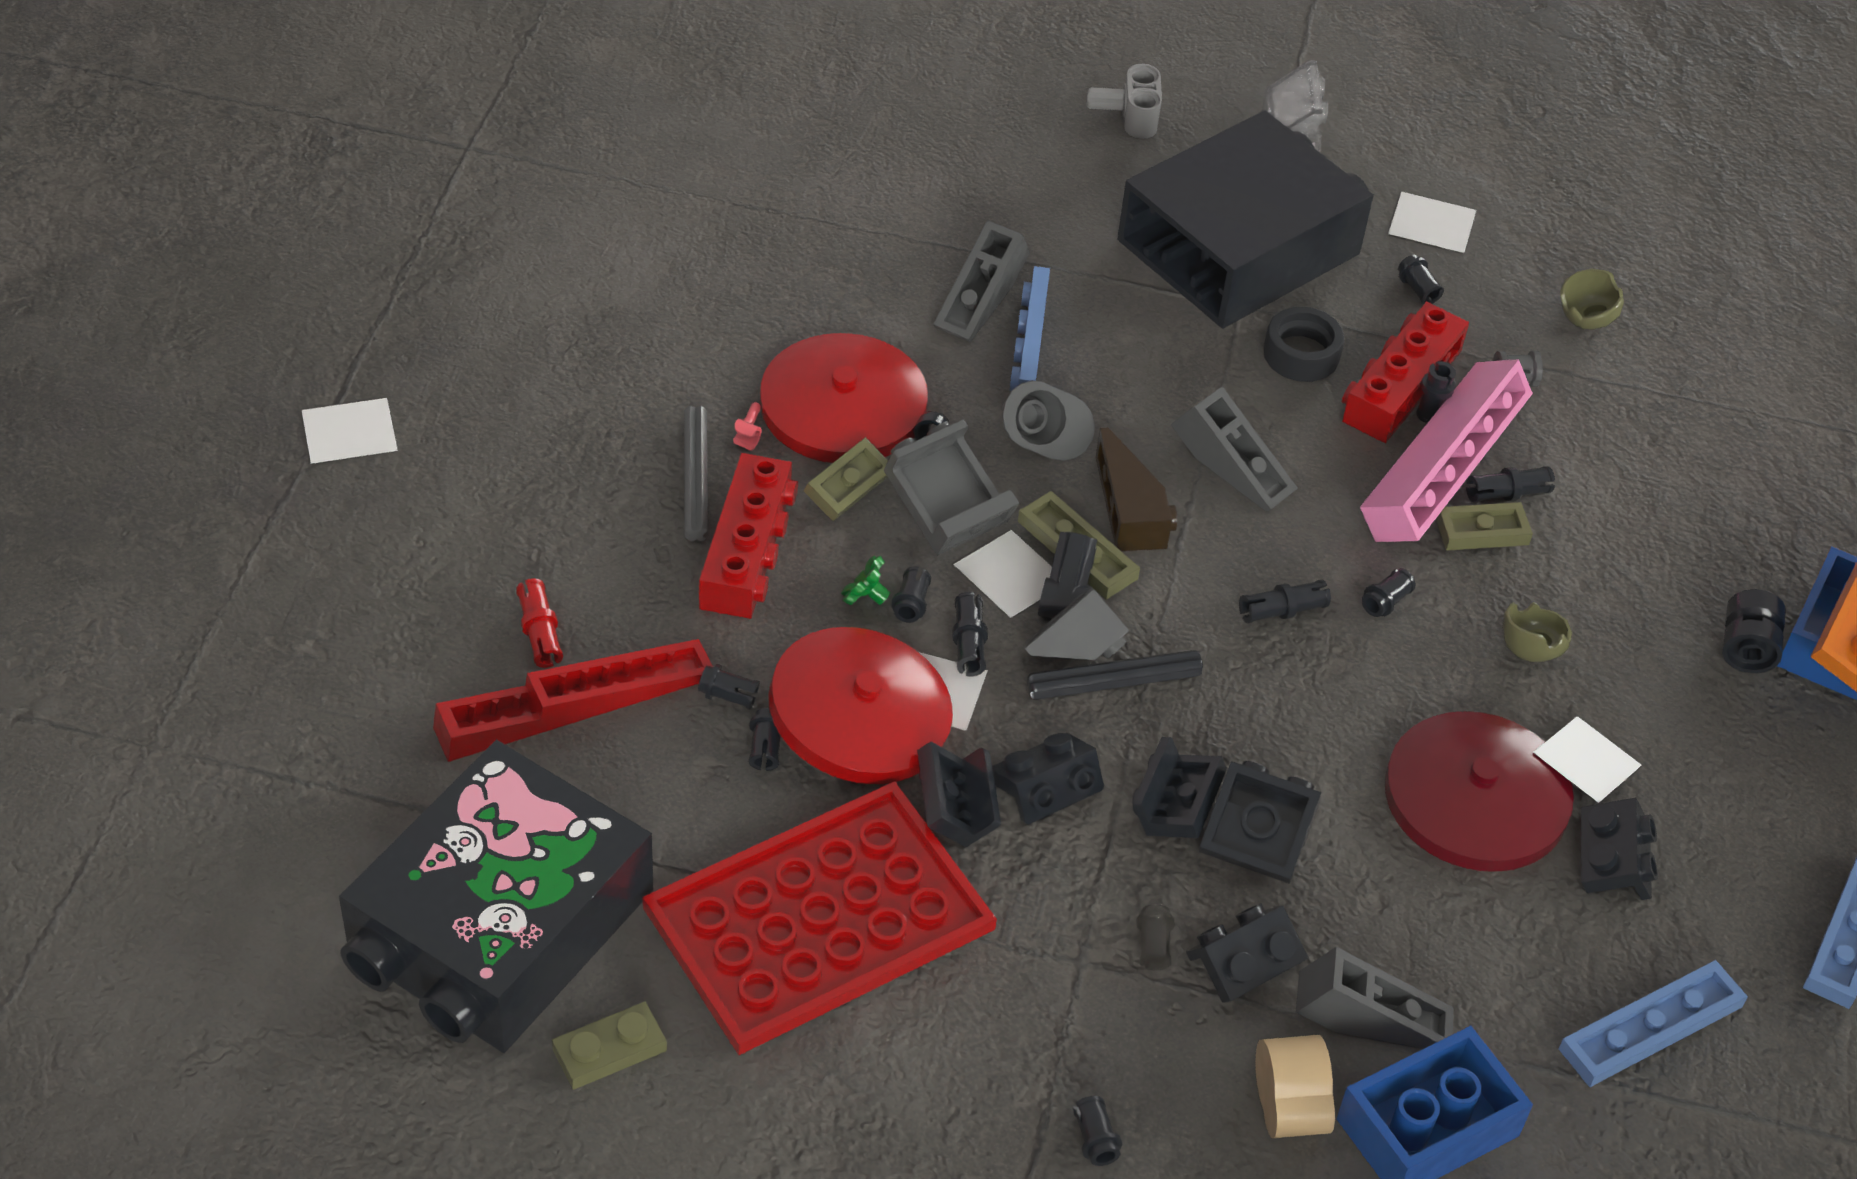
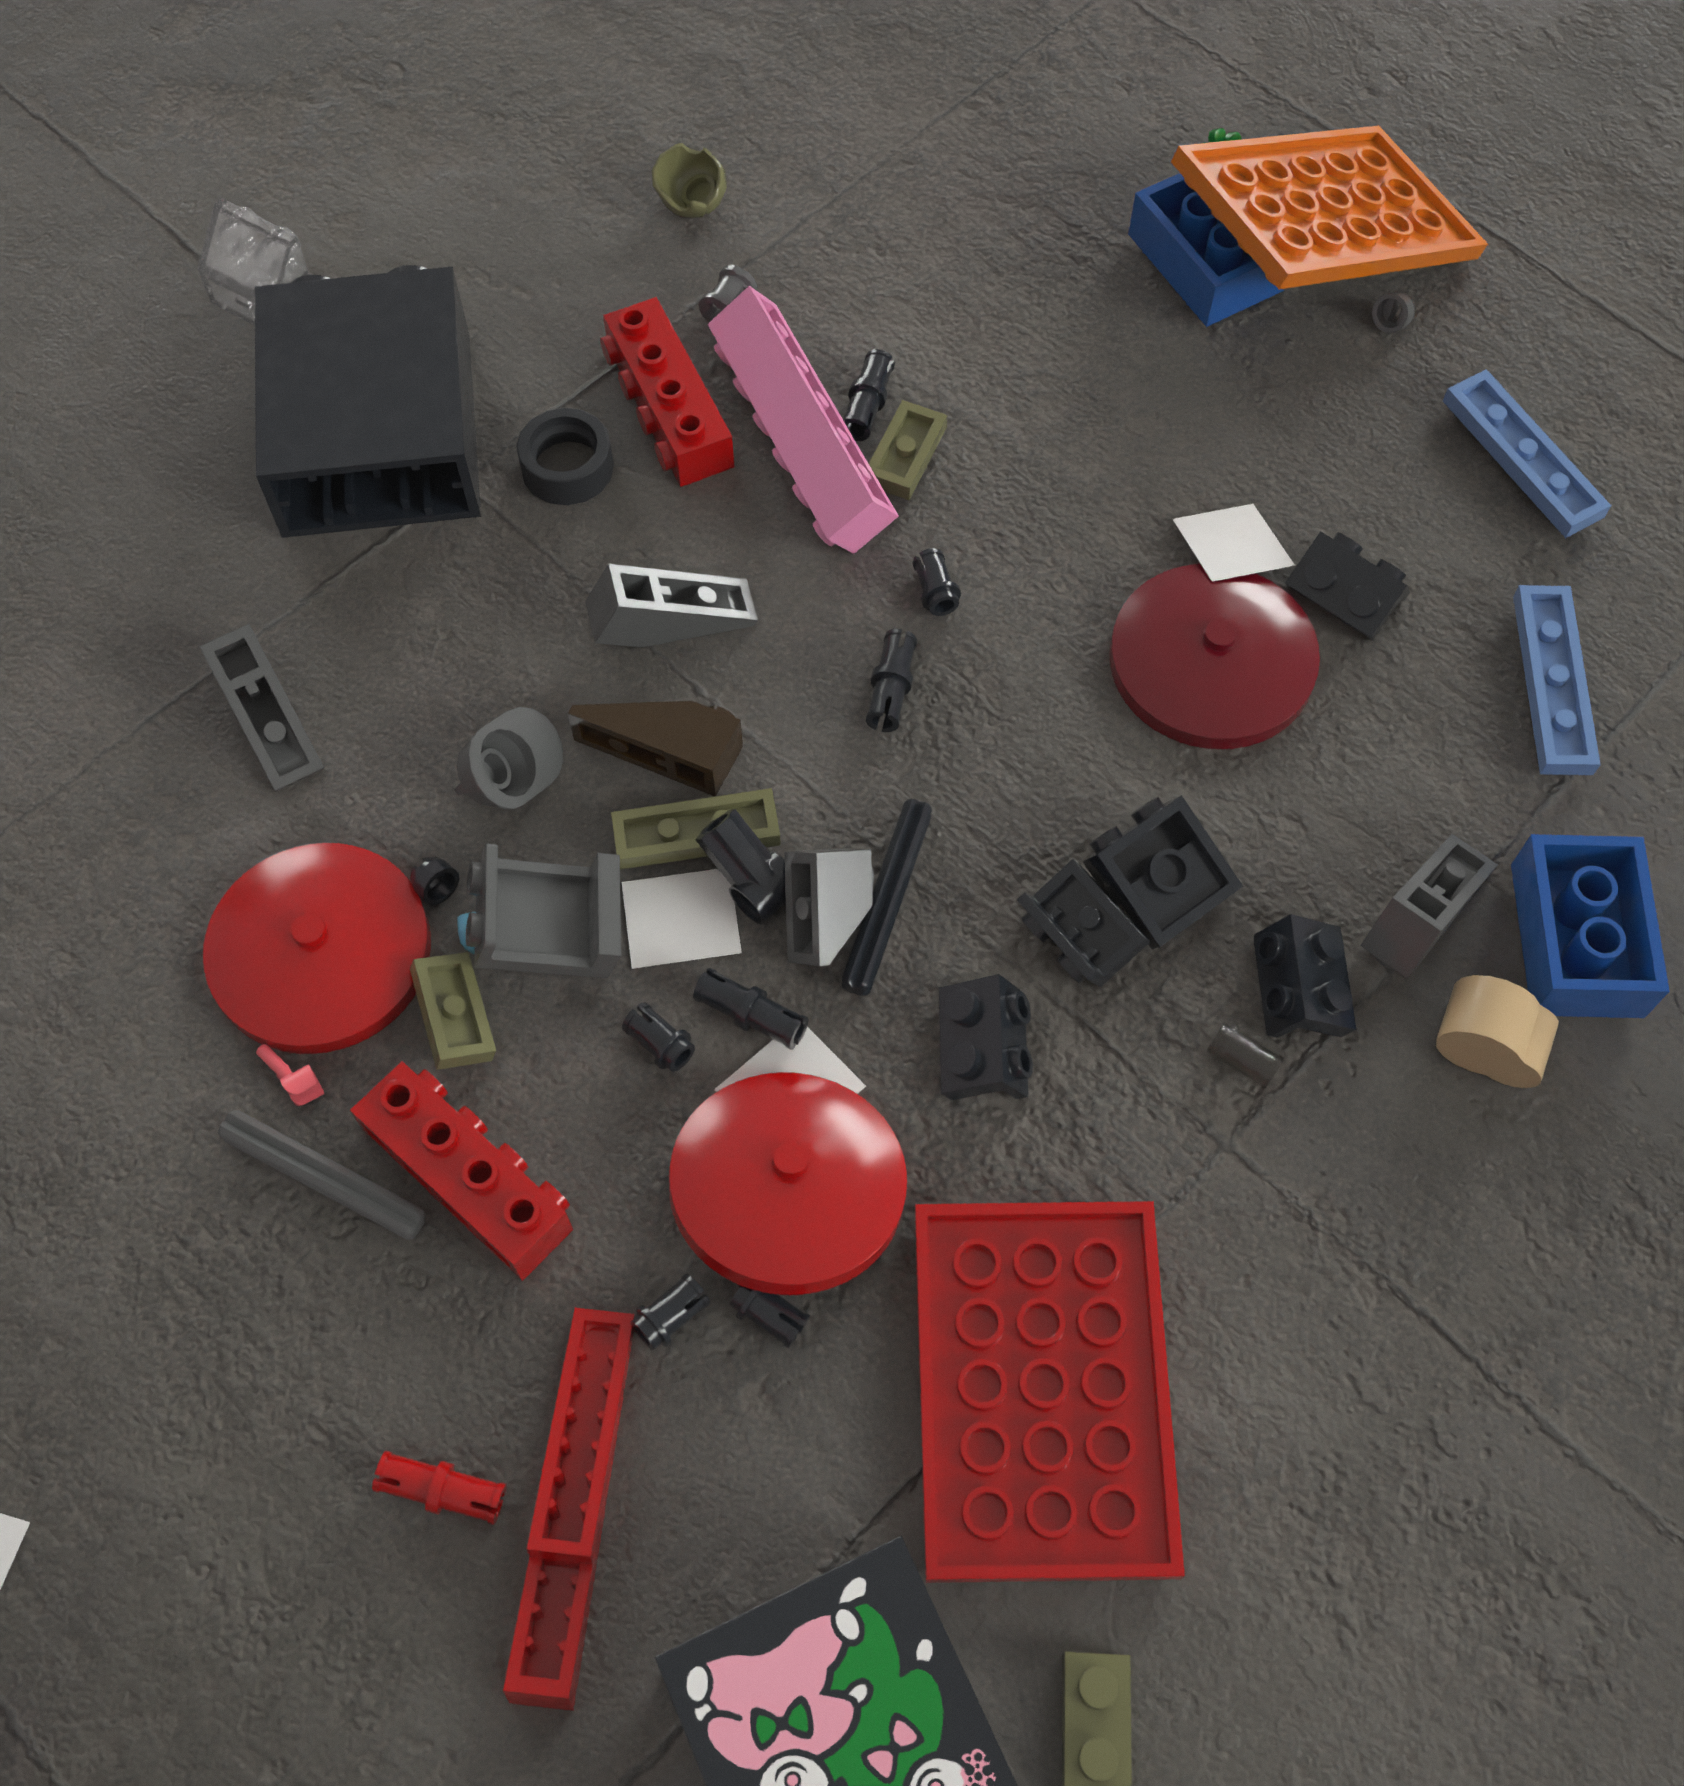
camera: 55 degrees left, 15 degrees up
(867, 584) = (612, 1077): green plant -> none
(958, 793) = (968, 1144): black bracket -> none
(1031, 325) = (386, 710): medium blue plate -> none
(1101, 1143) = (1454, 1252): black pin -> none
(1138, 100) = (103, 395): light grey beam -> none
(1415, 273) = (551, 303): black pin -> none
(1432, 222) = (475, 246): white sticker -> none
(1437, 388) = (721, 377): black pin -> none
(1535, 633) = (1068, 489): olive hair -> none
(1754, 631) = (1171, 316): black wheel -> none

